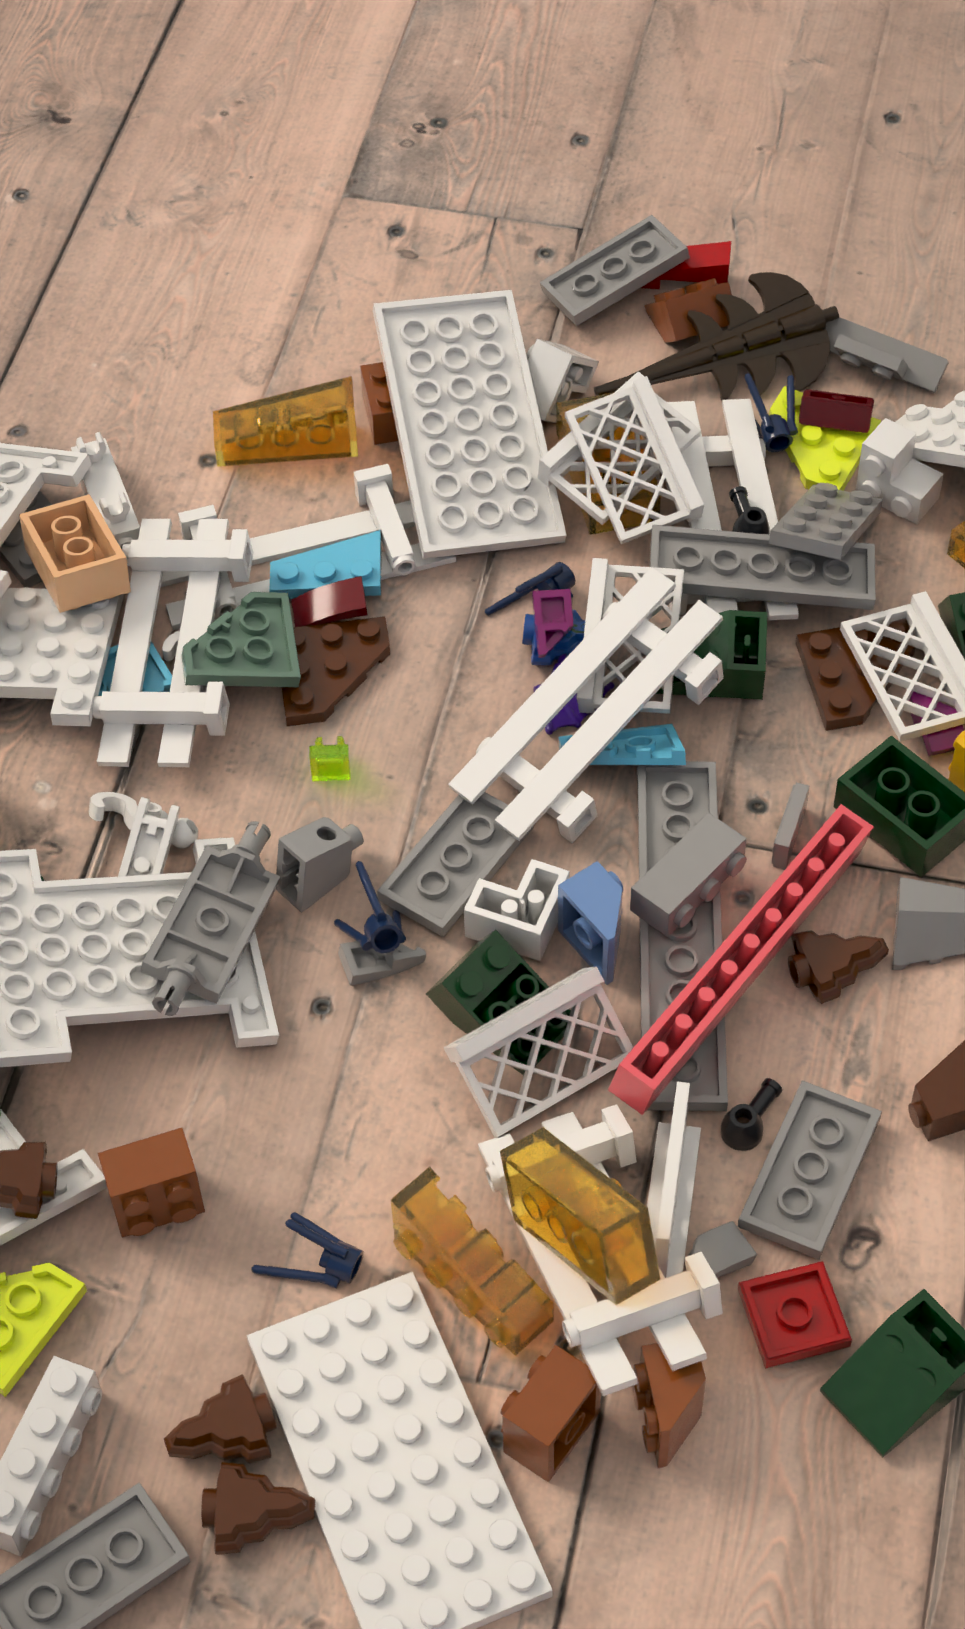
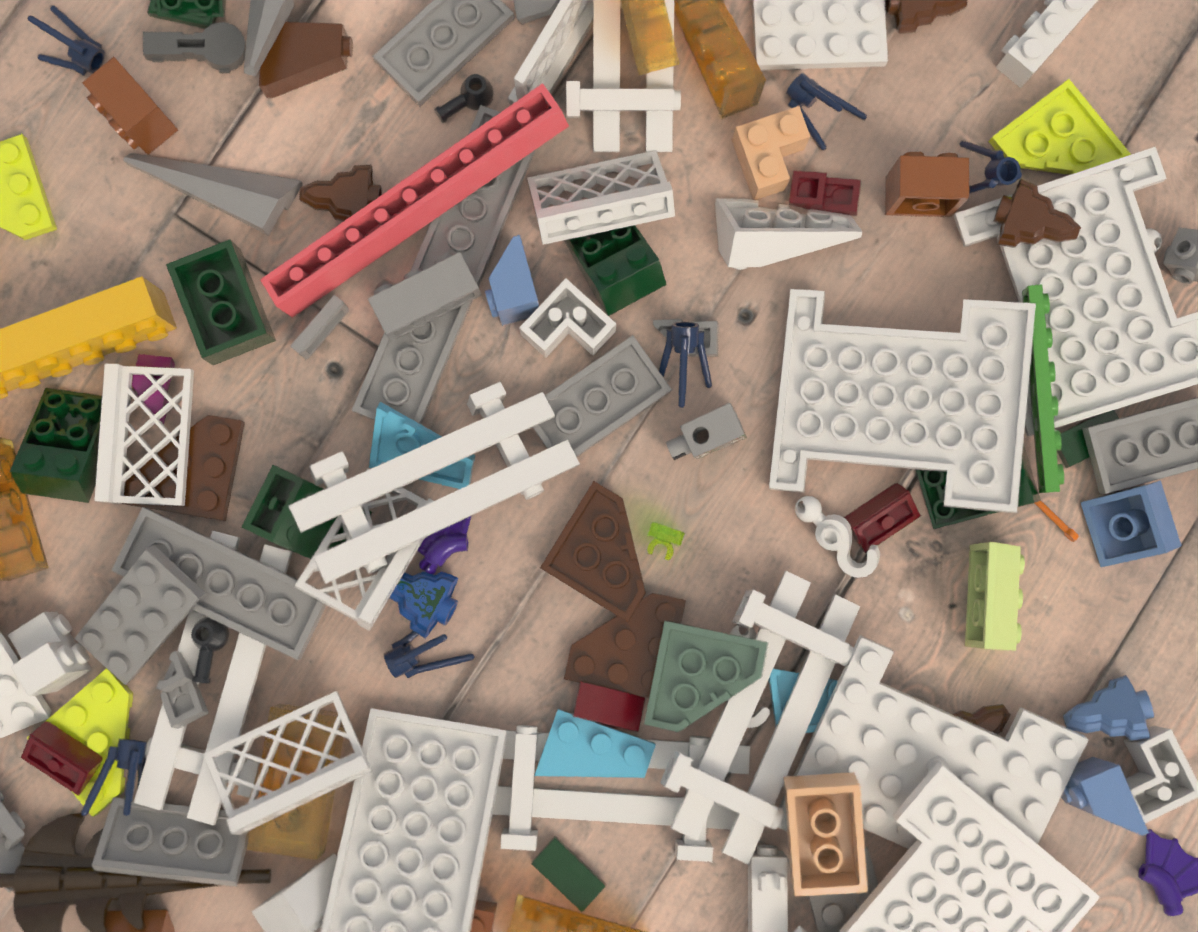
camera: 165 degrees left, 30 degrees up
(65, 1213) = (998, 171): none -> dark blue plant
(98, 856) = (882, 516): none -> dark red slope
(148, 841) = (846, 493): white hinge -> none
(211, 922) = (817, 391): light grey plate -> none
(275, 1161) = (824, 193): none -> dark red slope
(315, 480) = (568, 874): none -> dark green tile
(319, 1091) = (765, 235): none -> white wedge
(365, 1174) = (763, 145): none -> light nougat brick
(392, 724) = (599, 554): none -> reddish brown plate
(551, 618) = (427, 598): magenta slope -> none
(663, 447) = (250, 738): white fence -> none
(706, 375) = (169, 845): none -> light grey plate
(751, 474) = (180, 695): none -> light grey slope

